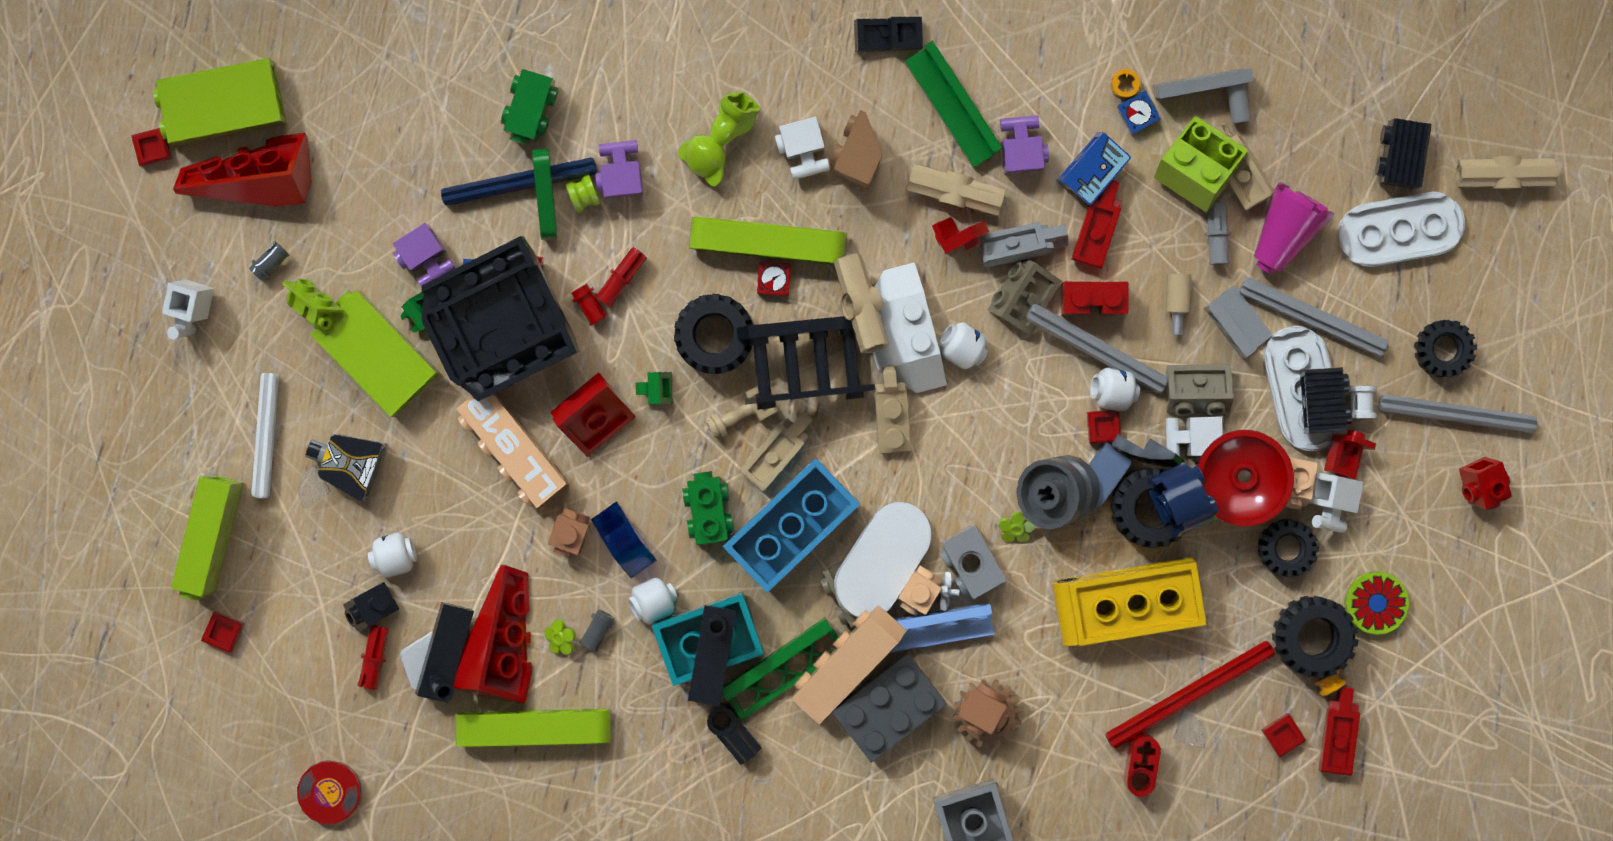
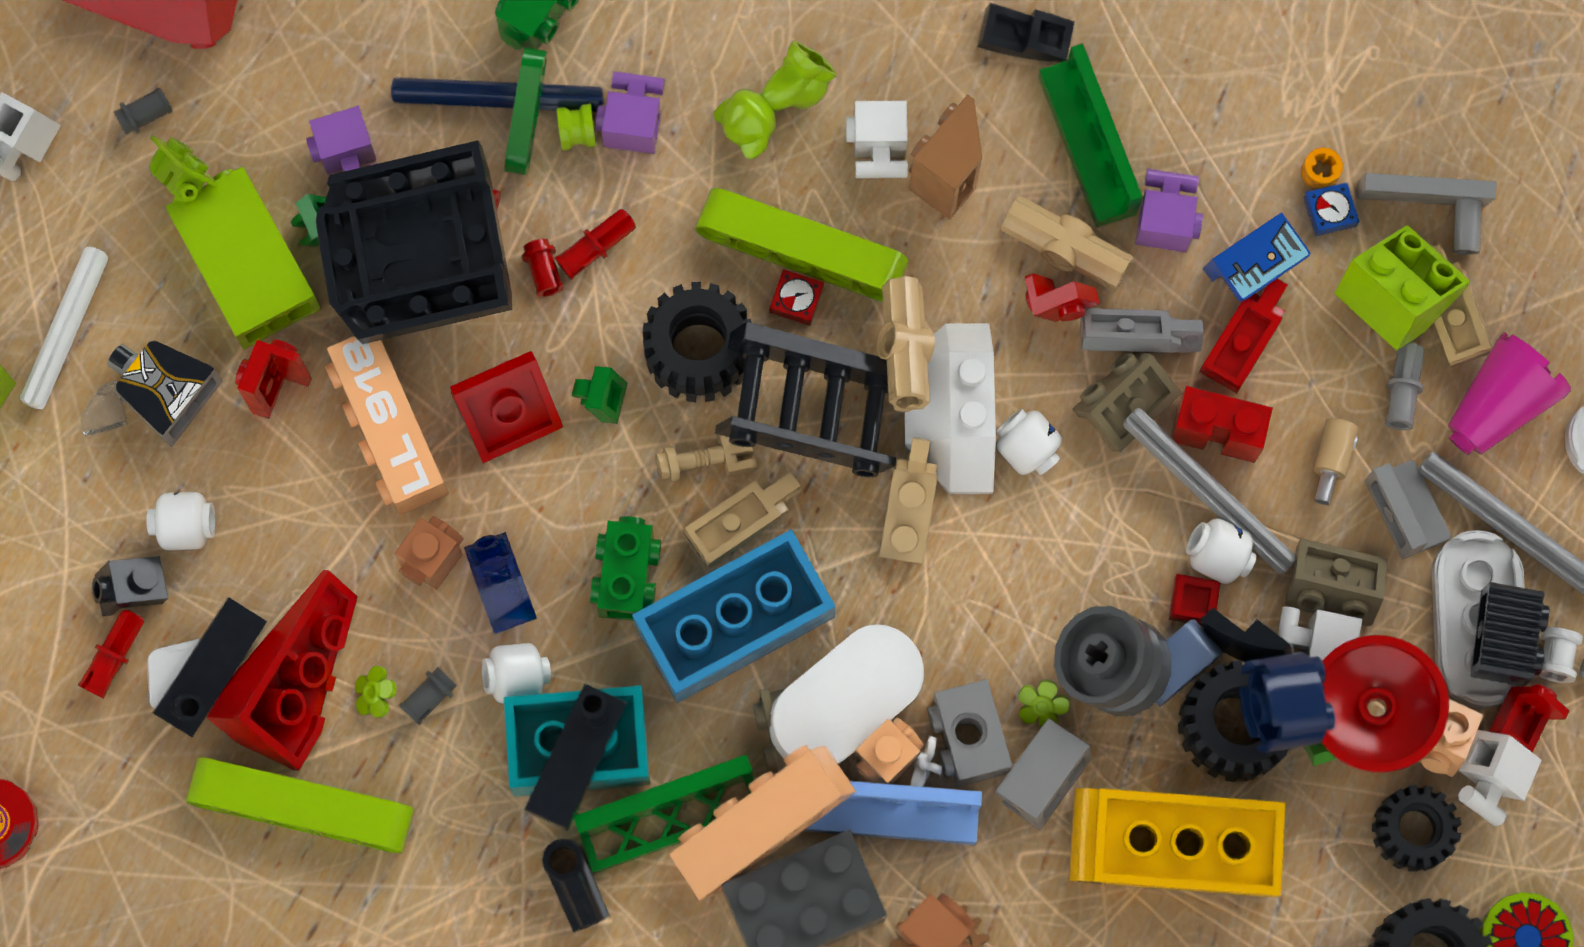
camera: 10 degrees right, 15 degrees down
(417, 443) = (265, 372): none -> red bracket
(1028, 576) = (1044, 773): none -> light grey hinge

